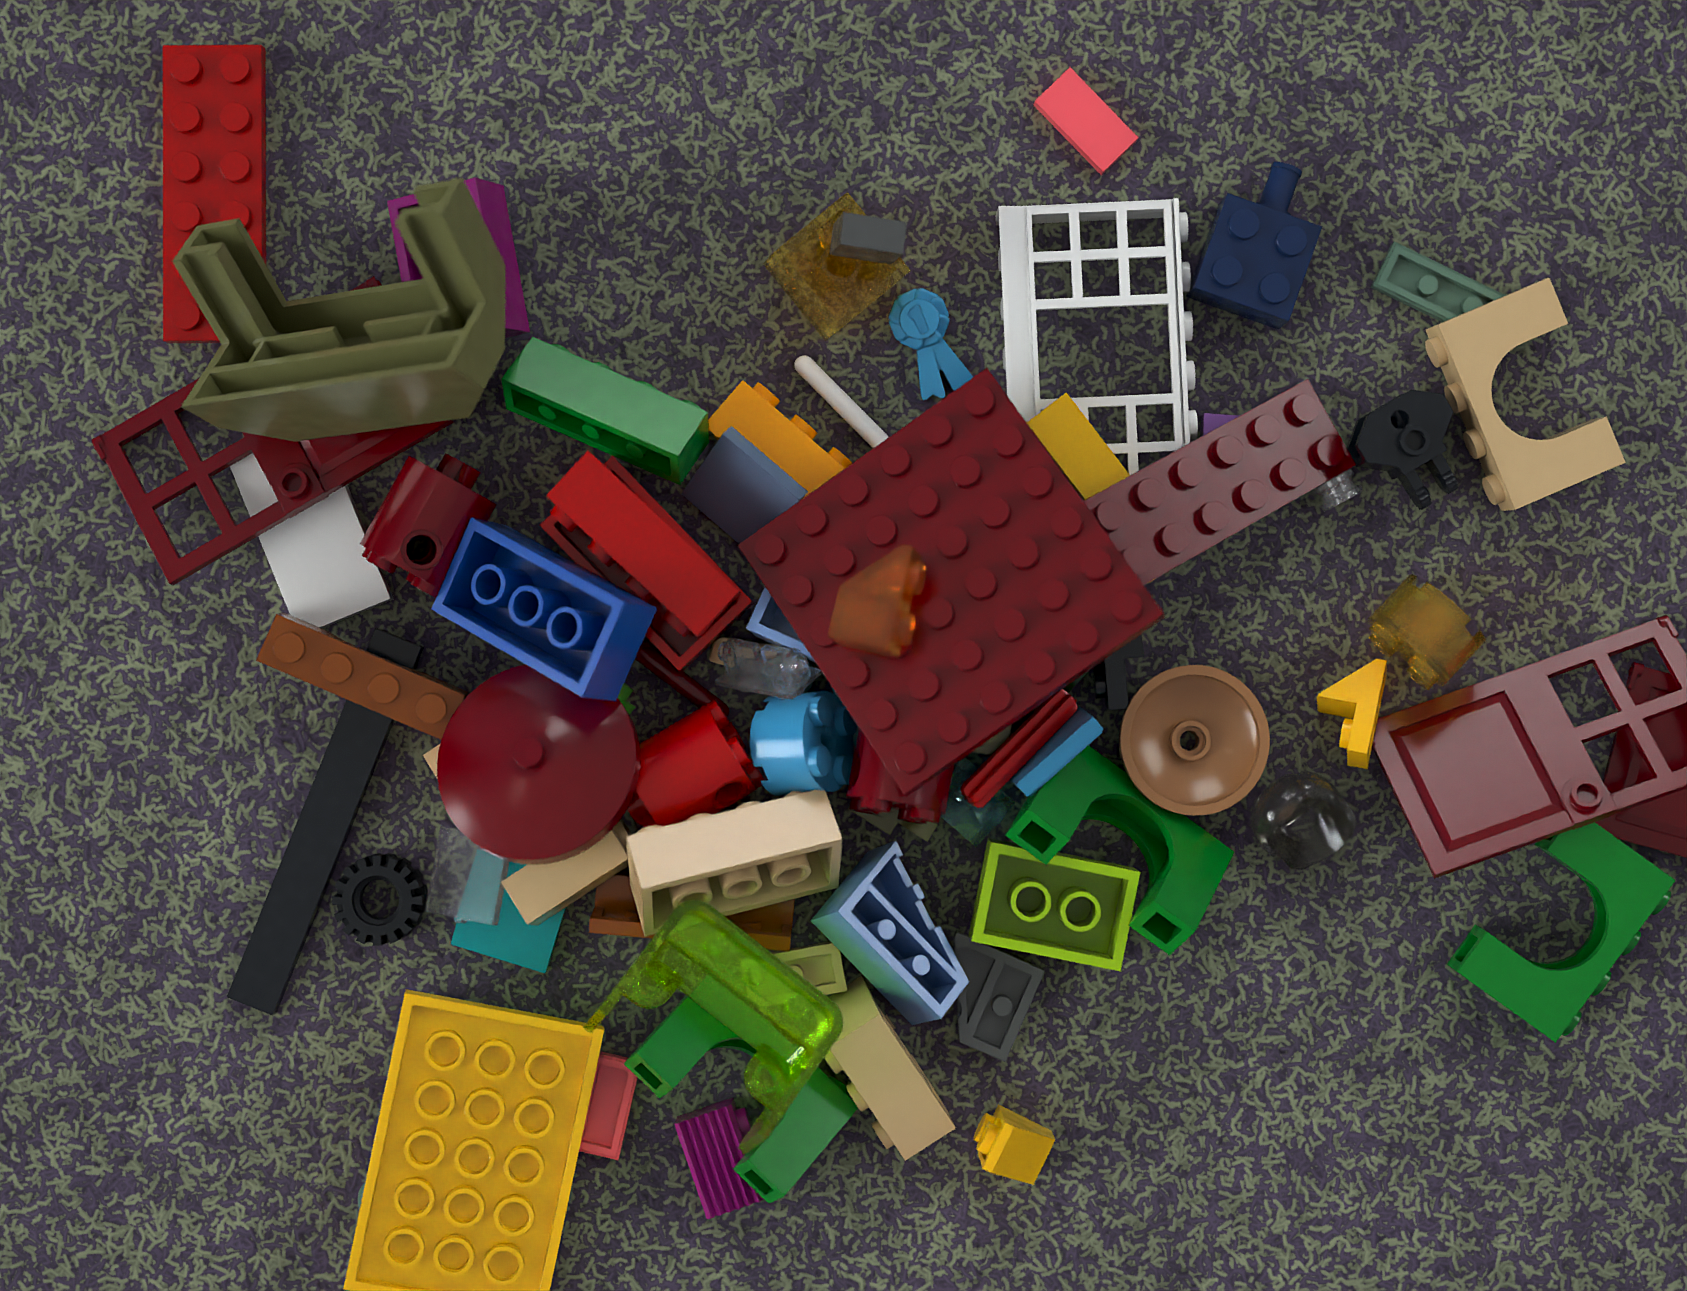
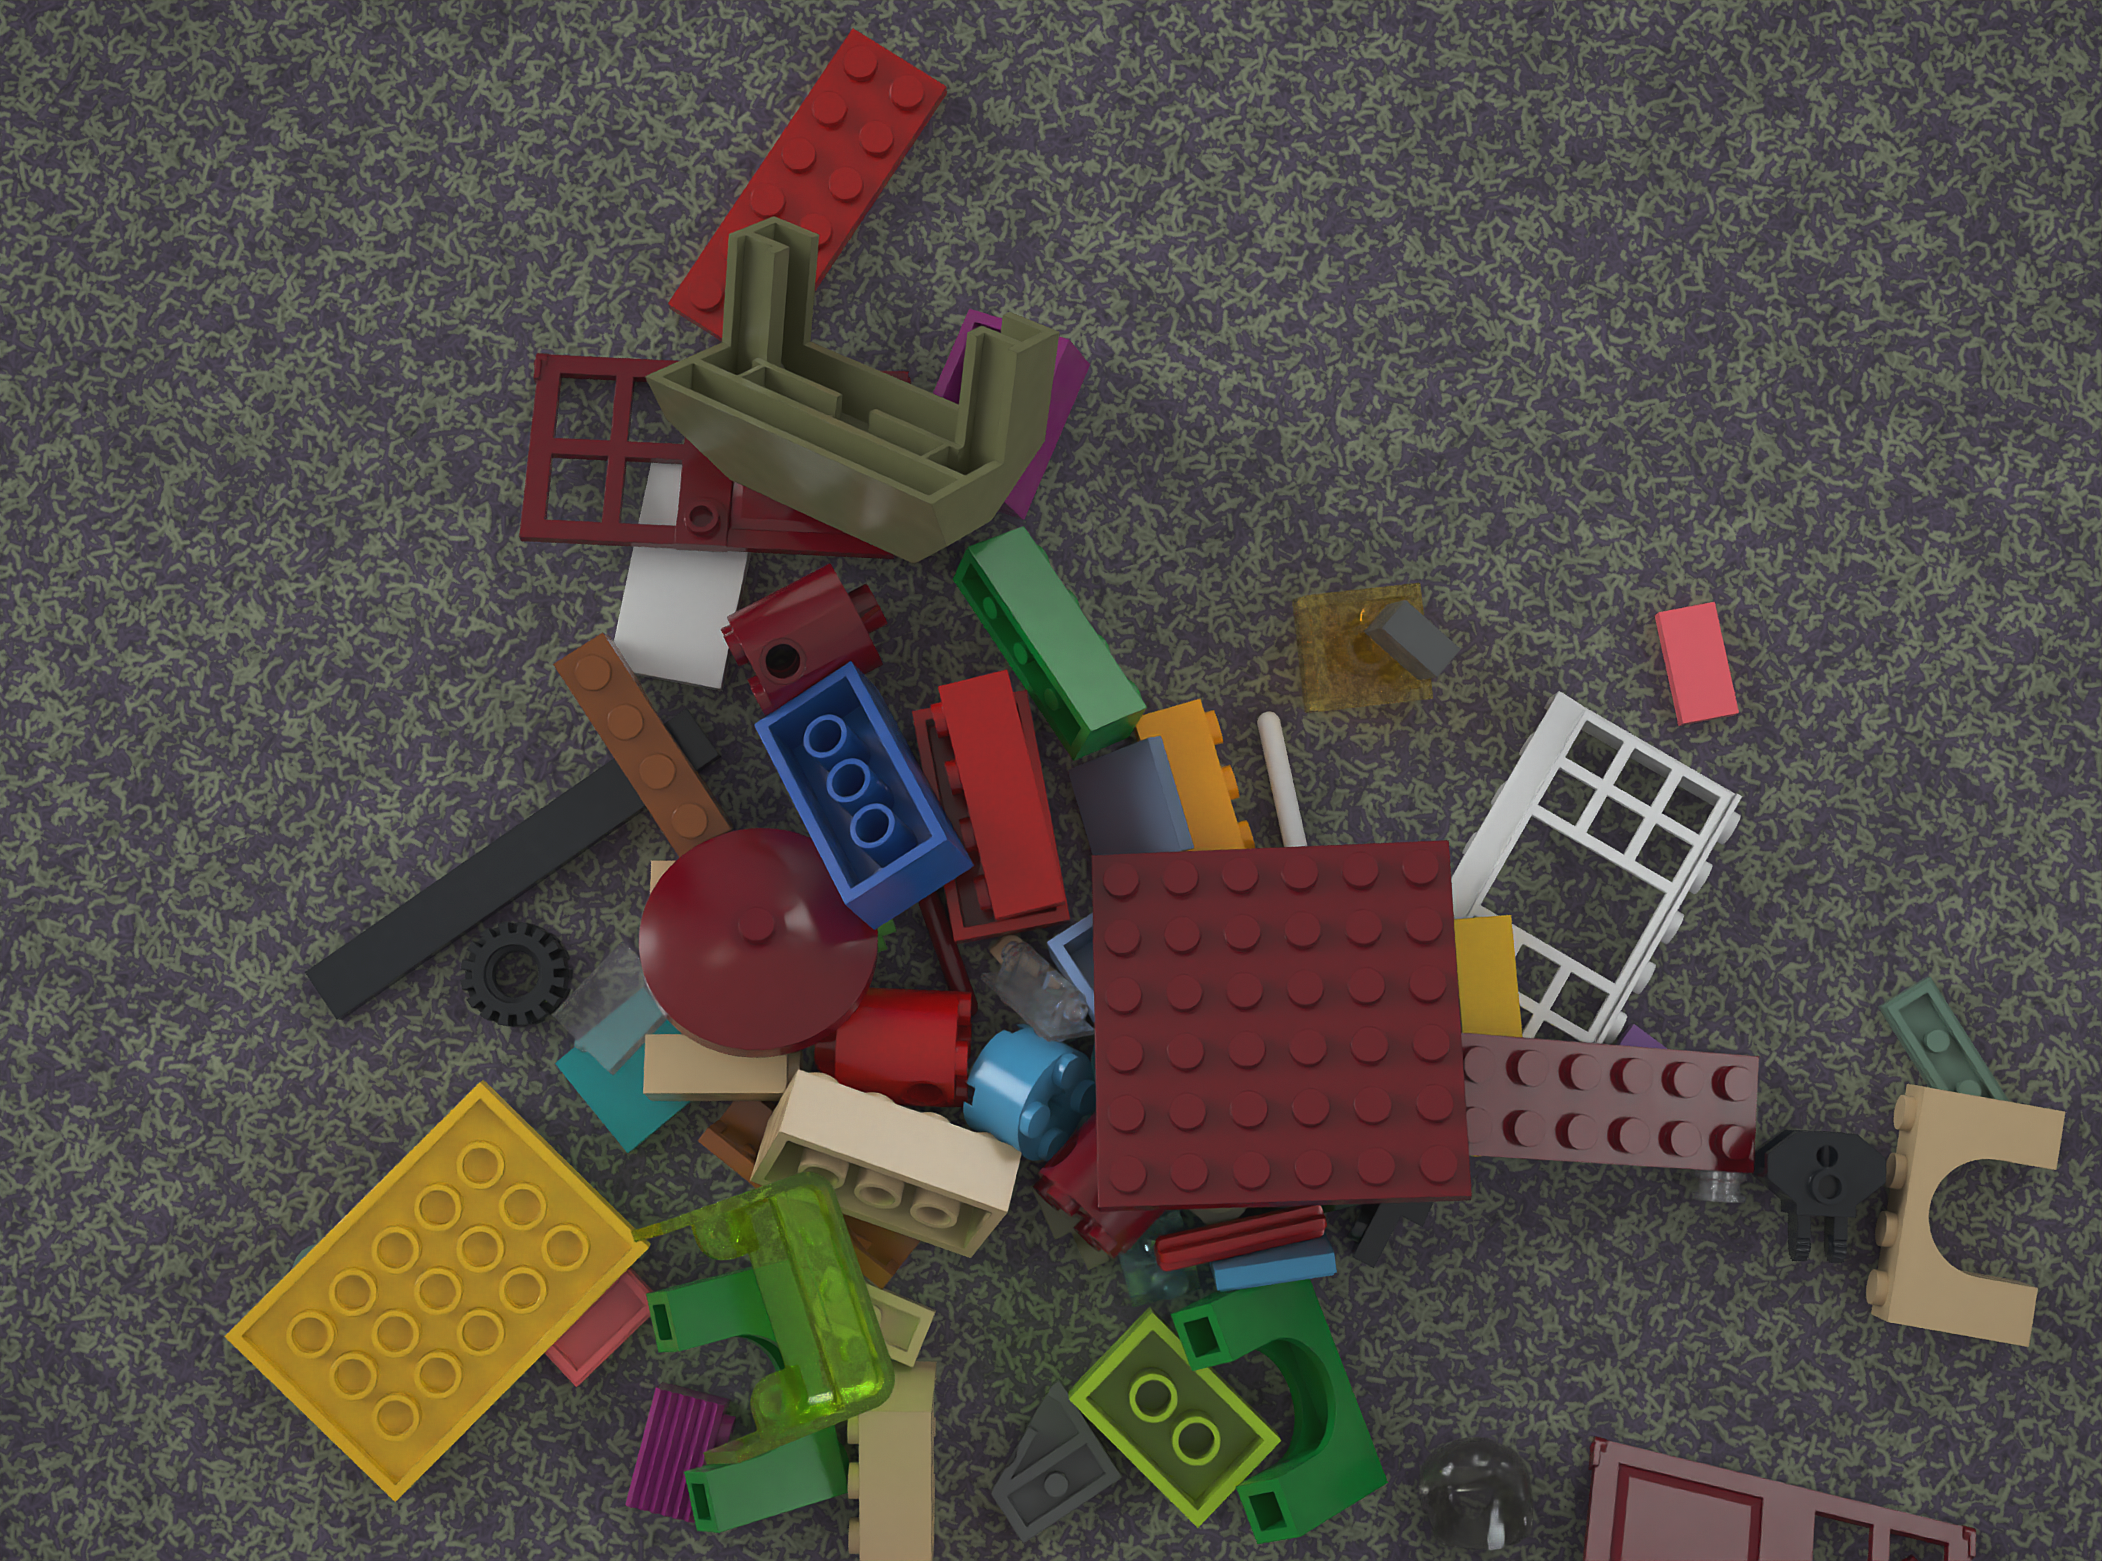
camera: 35 degrees right, 5 degrees down
(876, 604) = (1192, 1001): clear orange slope -> none
(891, 938) = (990, 1342): wedge -> none
(920, 322) = (1409, 754): dark azure piece -> none
(1228, 734) = (1459, 1349): medium nougat dish -> none
(1256, 253) = (1785, 900): dark blue brick -> none
(1357, 698) = (1610, 1409): yellow slope -> none
(1424, 632) = (1718, 1386): clear yellow brick -> none

